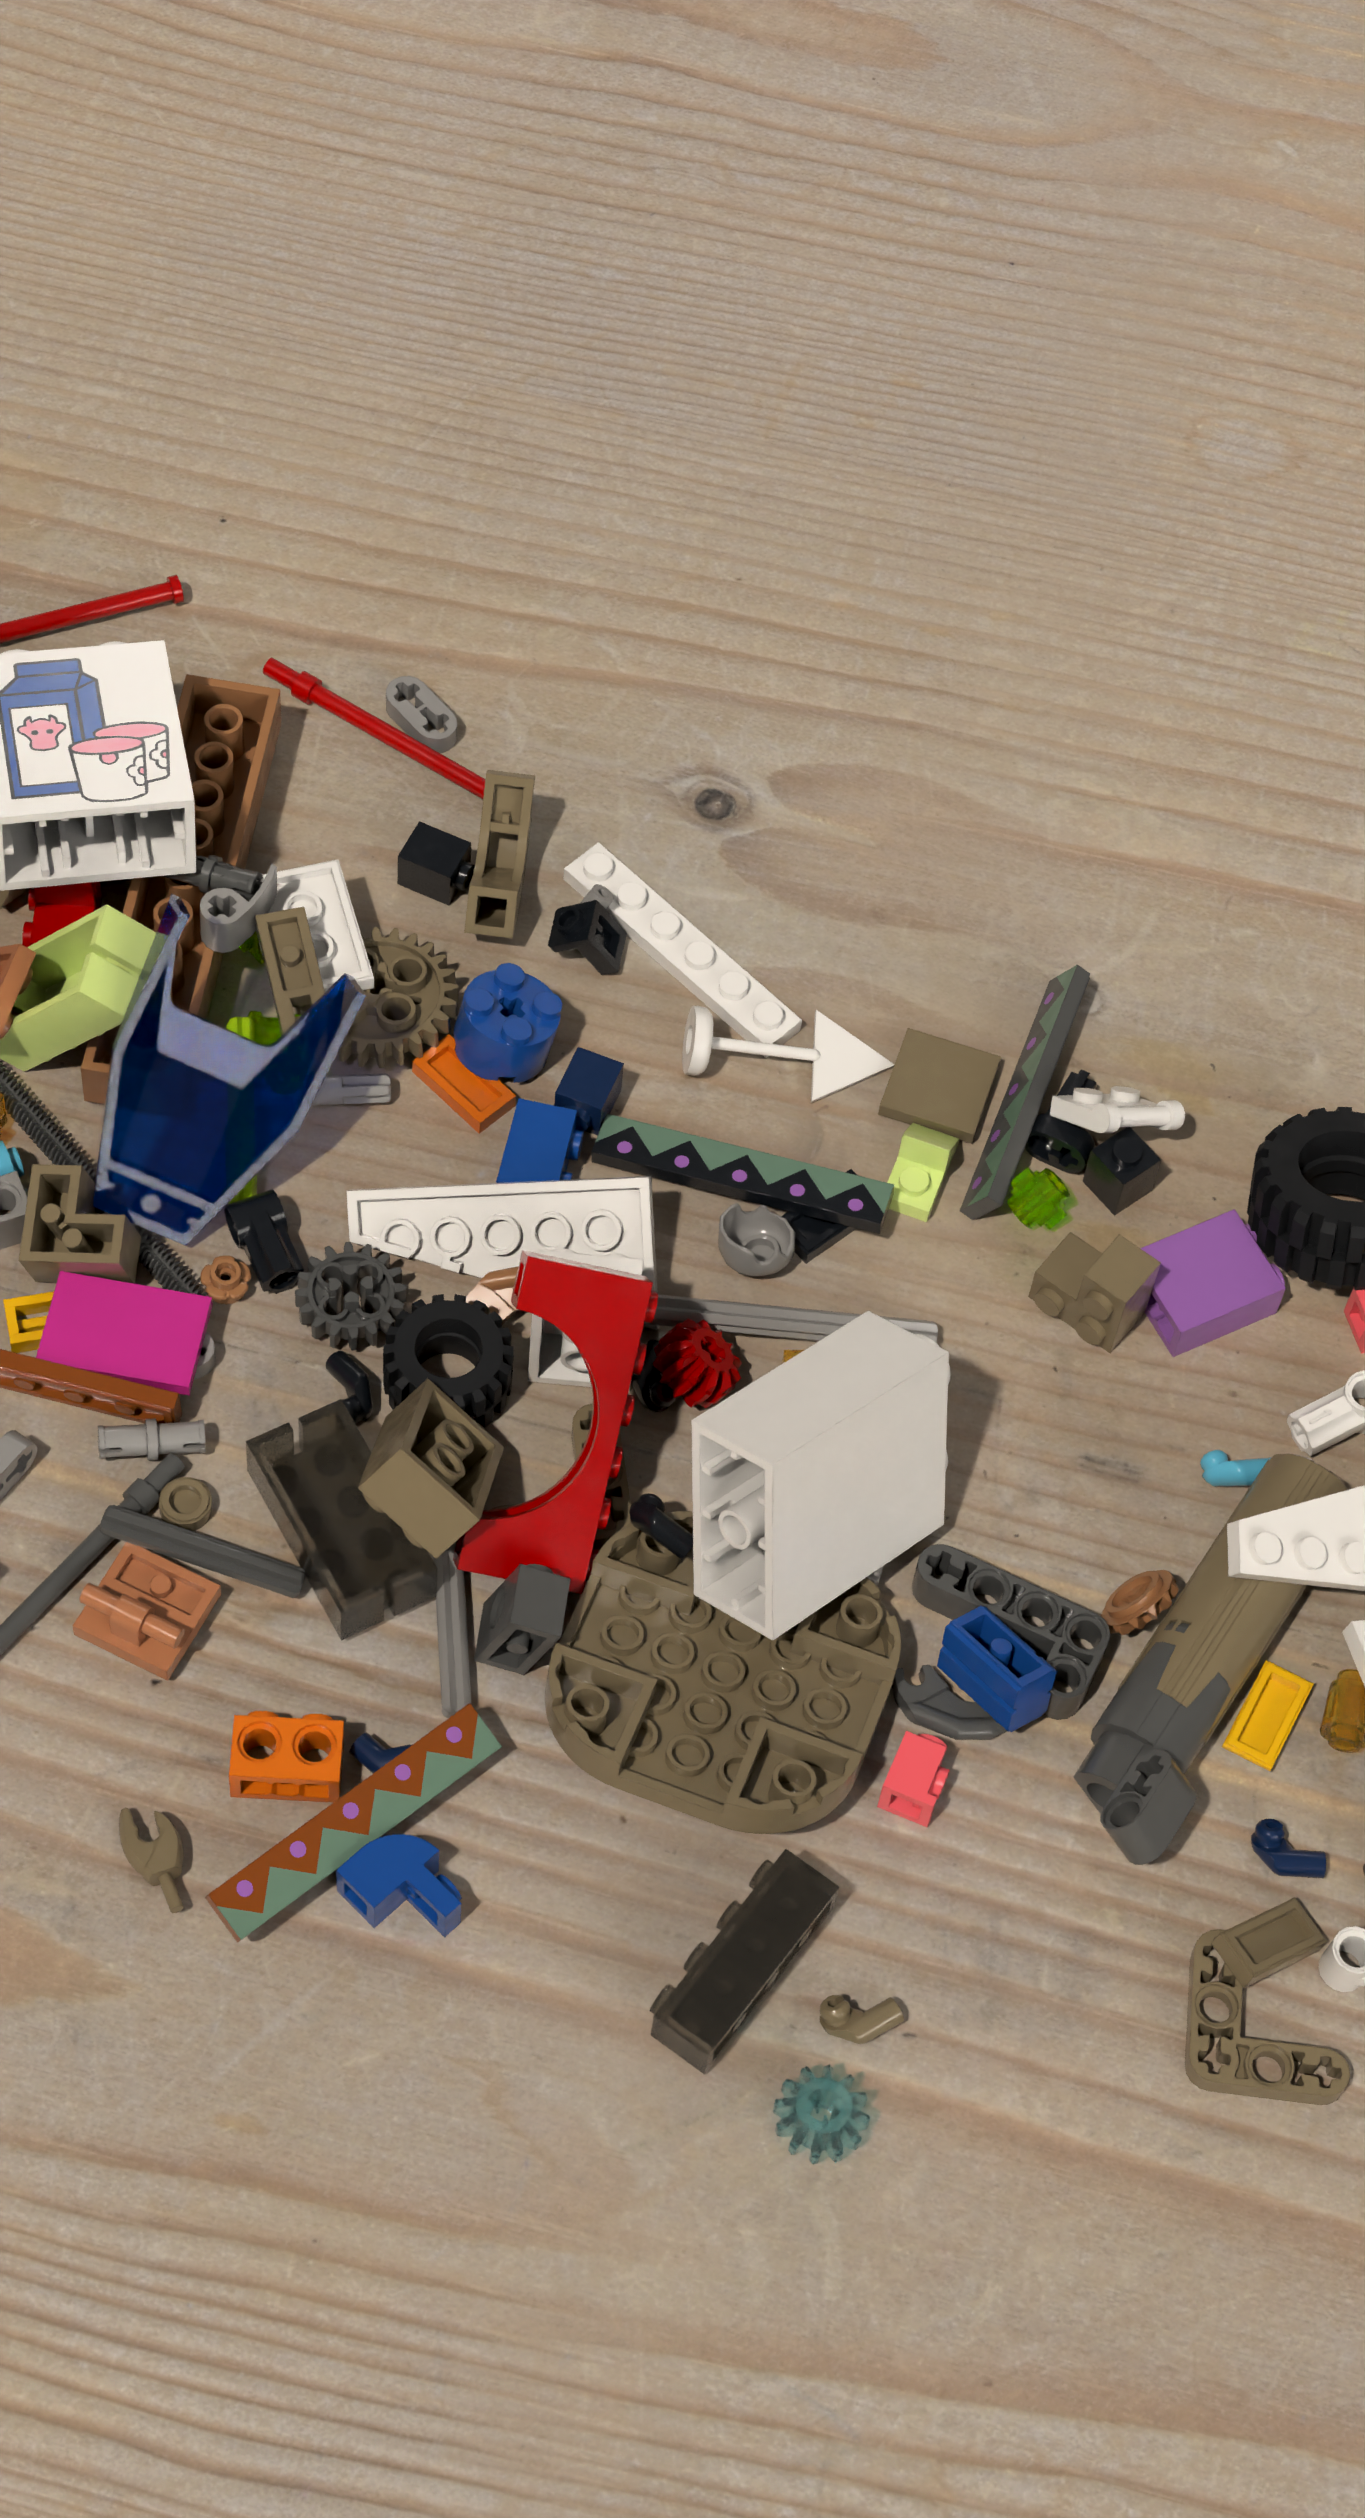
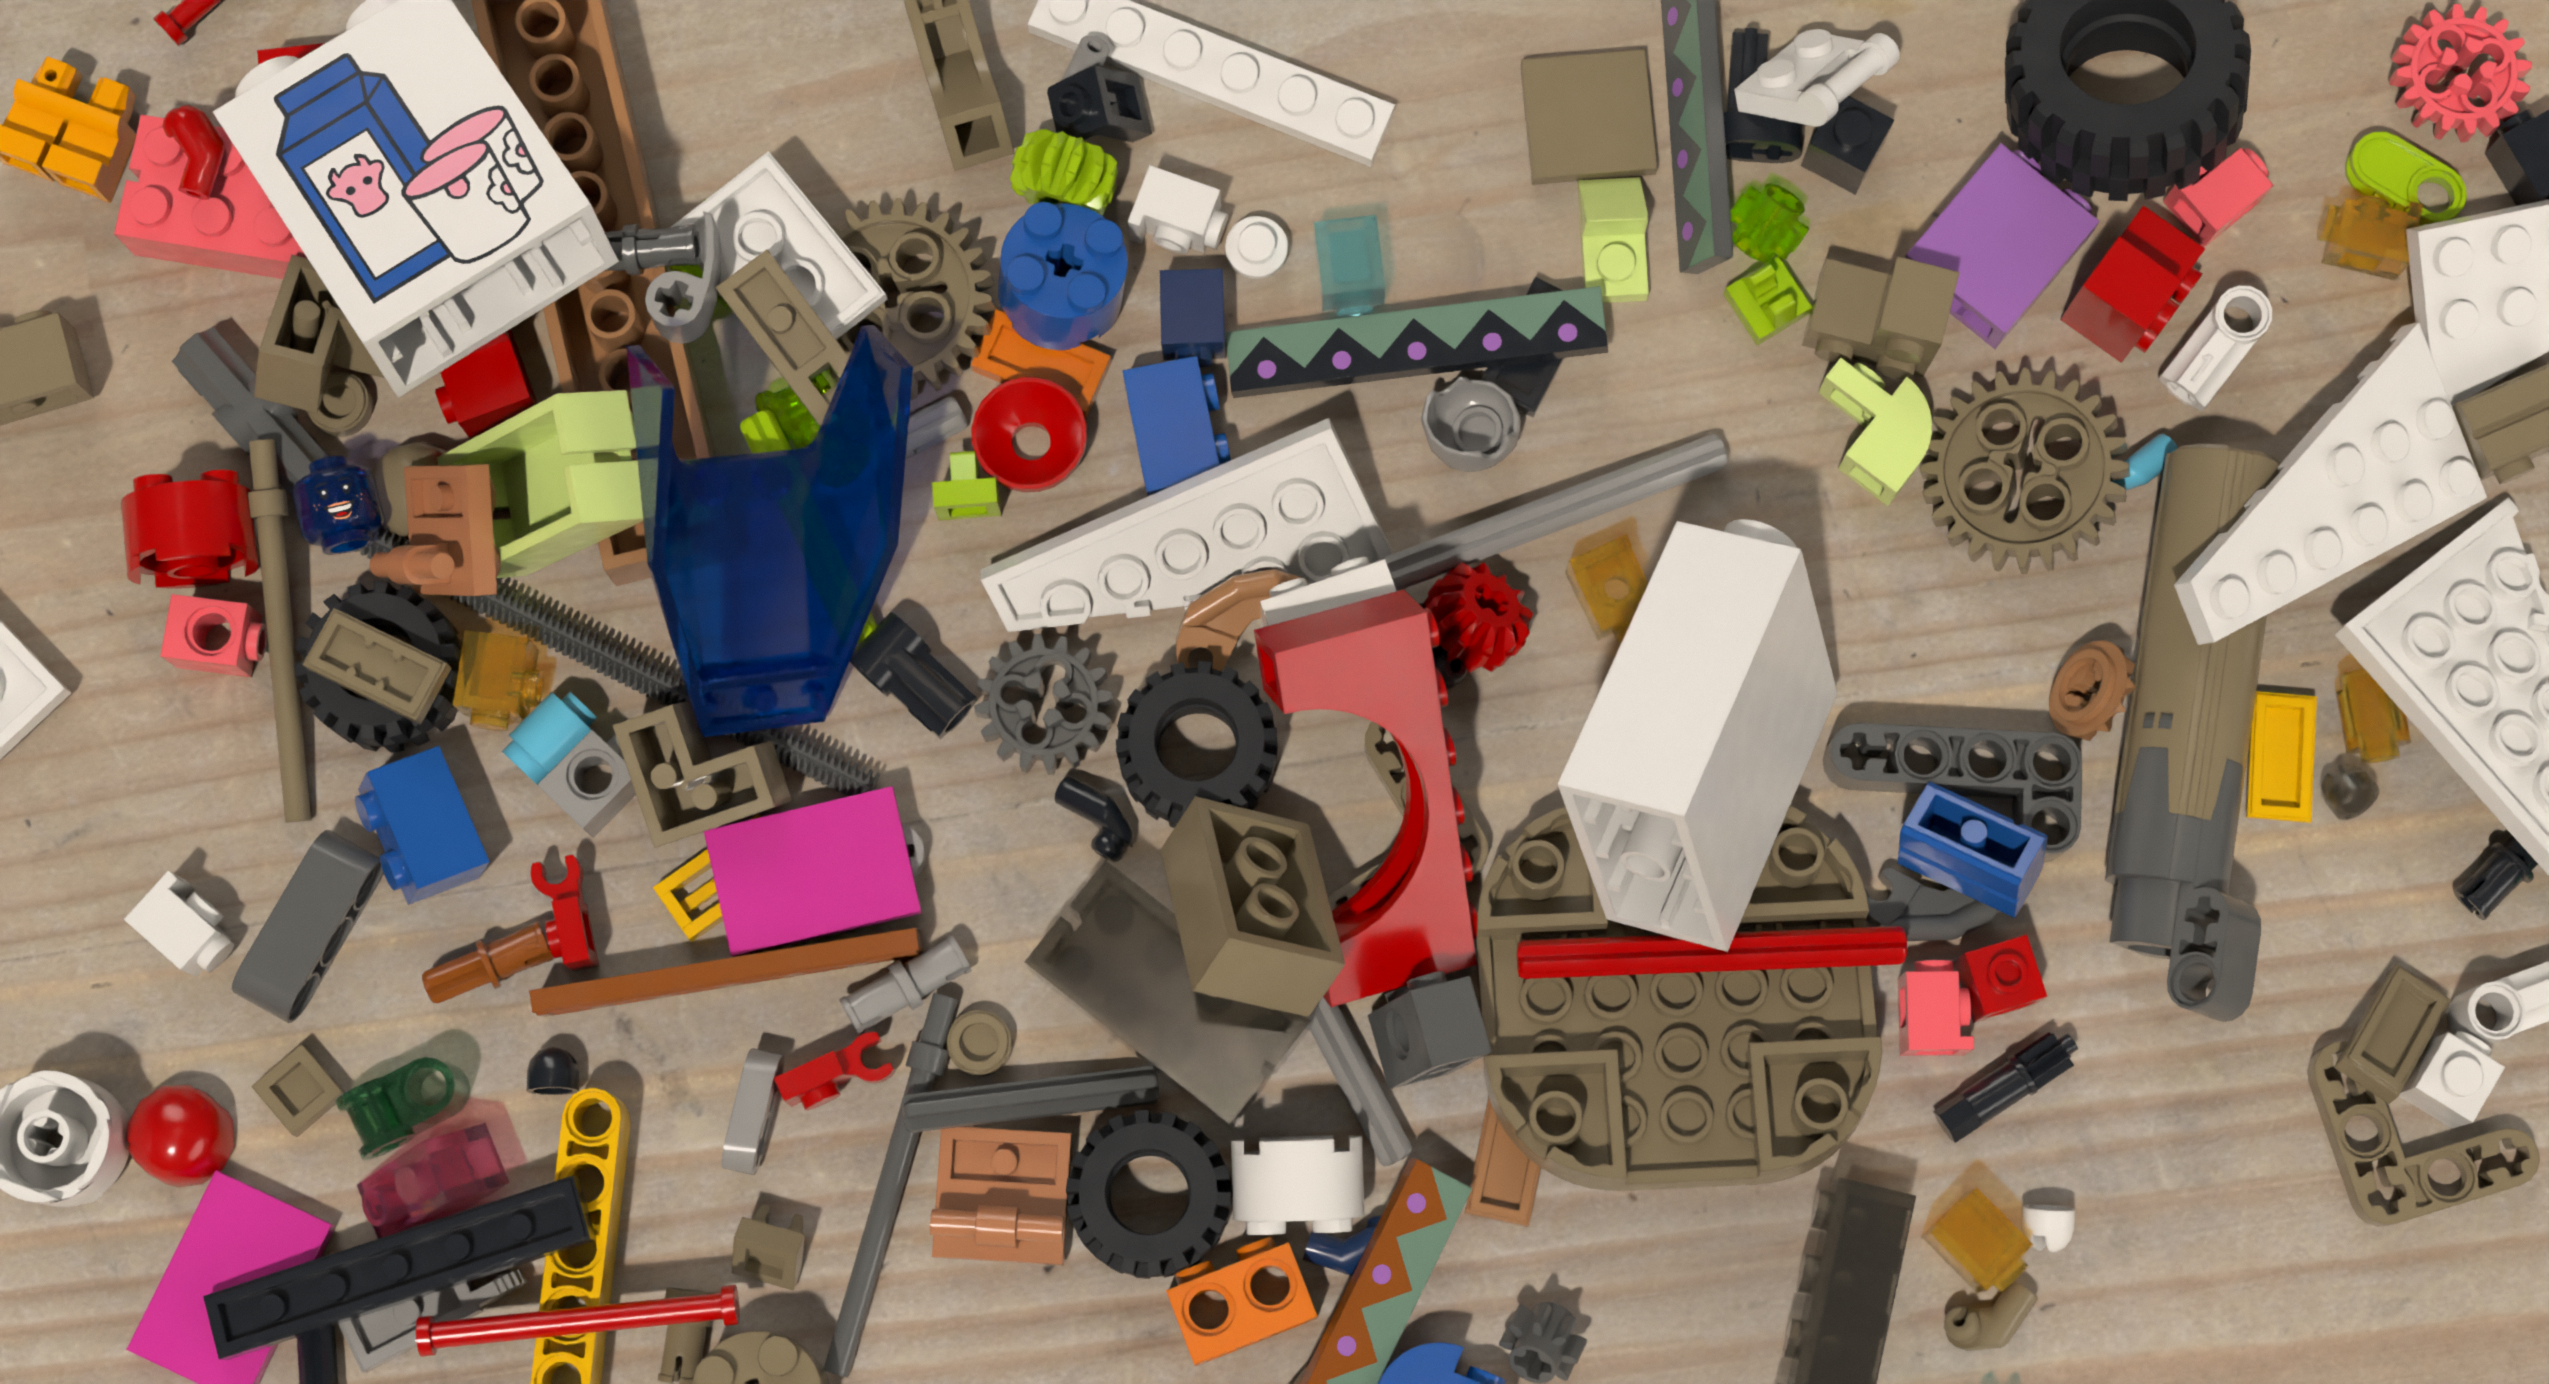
camera: 15 degrees left, 20 degrees up
(60, 1471) = (818, 1079): none -> red plate
(226, 1290) = (902, 755): medium nougat plate -> none
(250, 1611) = (1093, 1178): none -> black tyre
(366, 1137) = (966, 492): none -> lime tile
(372, 1683) = (1297, 1182): none -> white brick
(430, 1100) = (1021, 405): none -> red piece
(435, 863) = (876, 88): black brick -> none
(502, 1880) = (1543, 1342): none -> dark grey gear
(530, 1759) = (1502, 1177): none -> medium nougat tile
(543, 956) = (1063, 170): none -> lime gear
(609, 1022) = (1177, 213): none -> white brick
(649, 1517) = (1535, 858): black arm -> none
(656, 1071) = (1256, 247): none -> white plate
(718, 1102) = (1349, 265): none -> clear light blue brick
(762, 1651) = (1747, 952): none -> red axle
(836, 1054) = (1455, 133): white piece -> none
(875, 1954) = (1979, 1242): none -> clear yellow brick
(935, 1969) = (2048, 1226): none -> white hinge
(950, 1855) = (2006, 1085): none -> black piece
(977, 1773) = (2001, 978): none -> red brick
(1014, 1252) = (1767, 300): none -> lime tile
(1064, 1373) = (1895, 426): none -> yellowish green brick
(1156, 1436) = (2079, 482): none -> dark tan gear
(1280, 1857) = (2363, 921): dark blue arm -> none
(1292, 1343) = (2132, 286): none -> red brick
(1301, 1992) = (2452, 1078): none -> white brick
(1321, 1757) = (2349, 791): none -> clear smoke hinge

